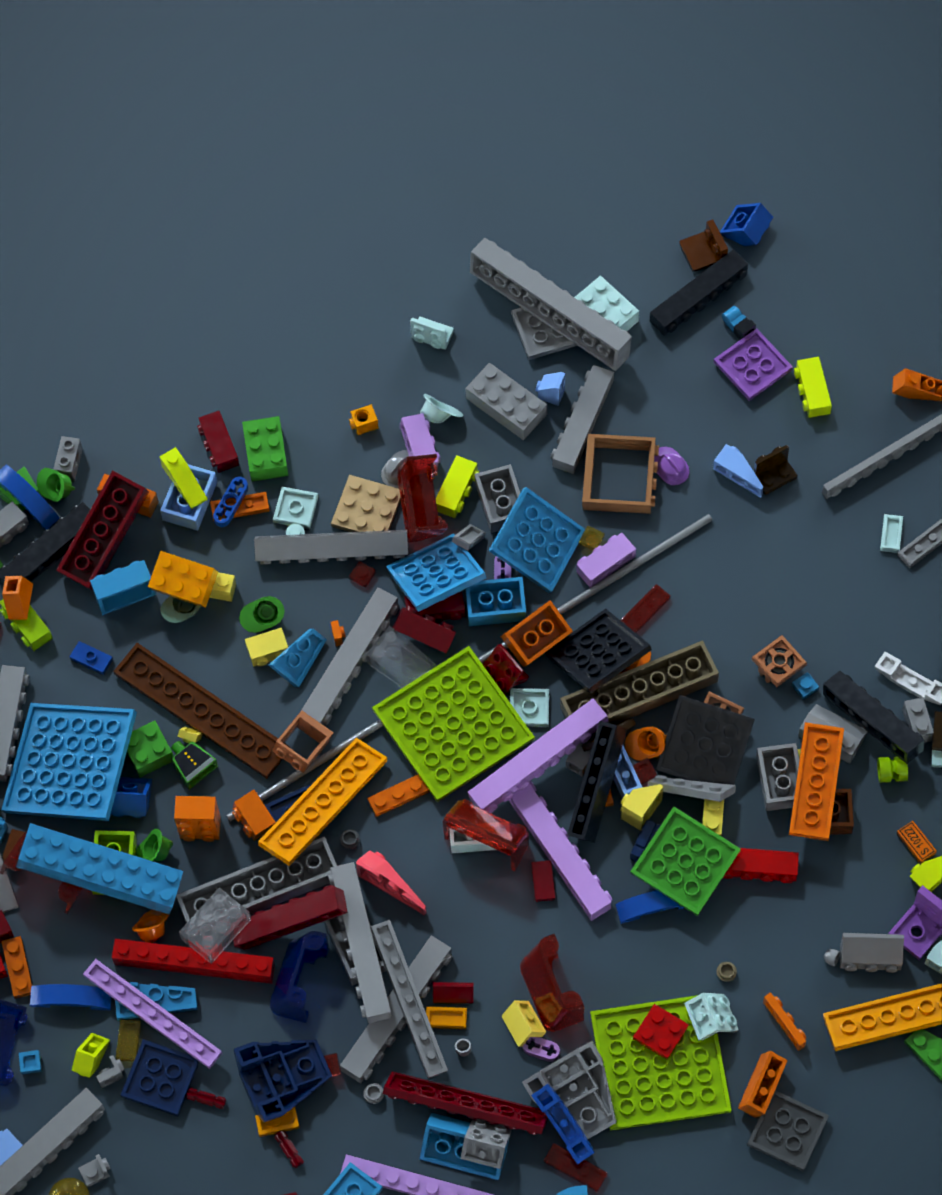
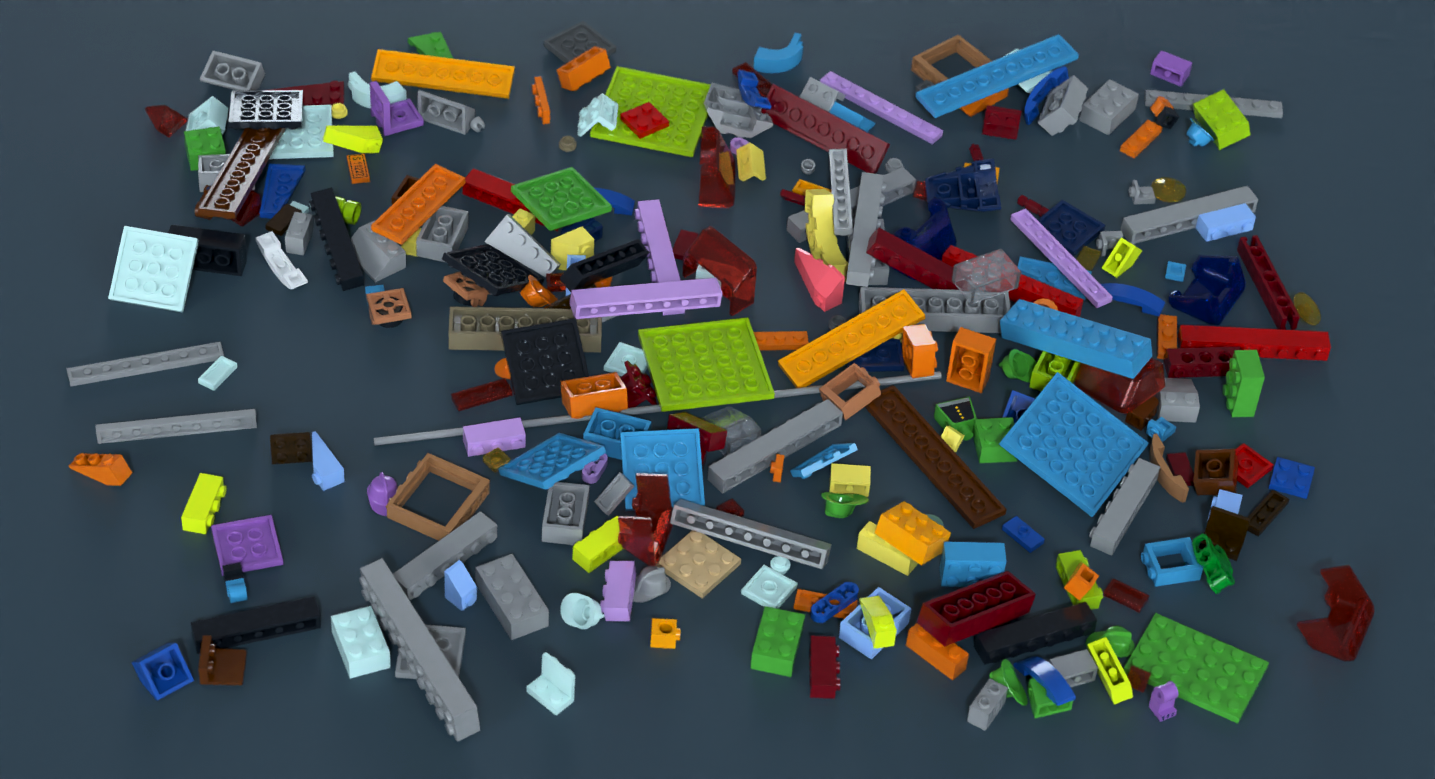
camera: 165 degrees left, 20 degrees down
(410, 939) = (821, 229): none -> light yellow brick

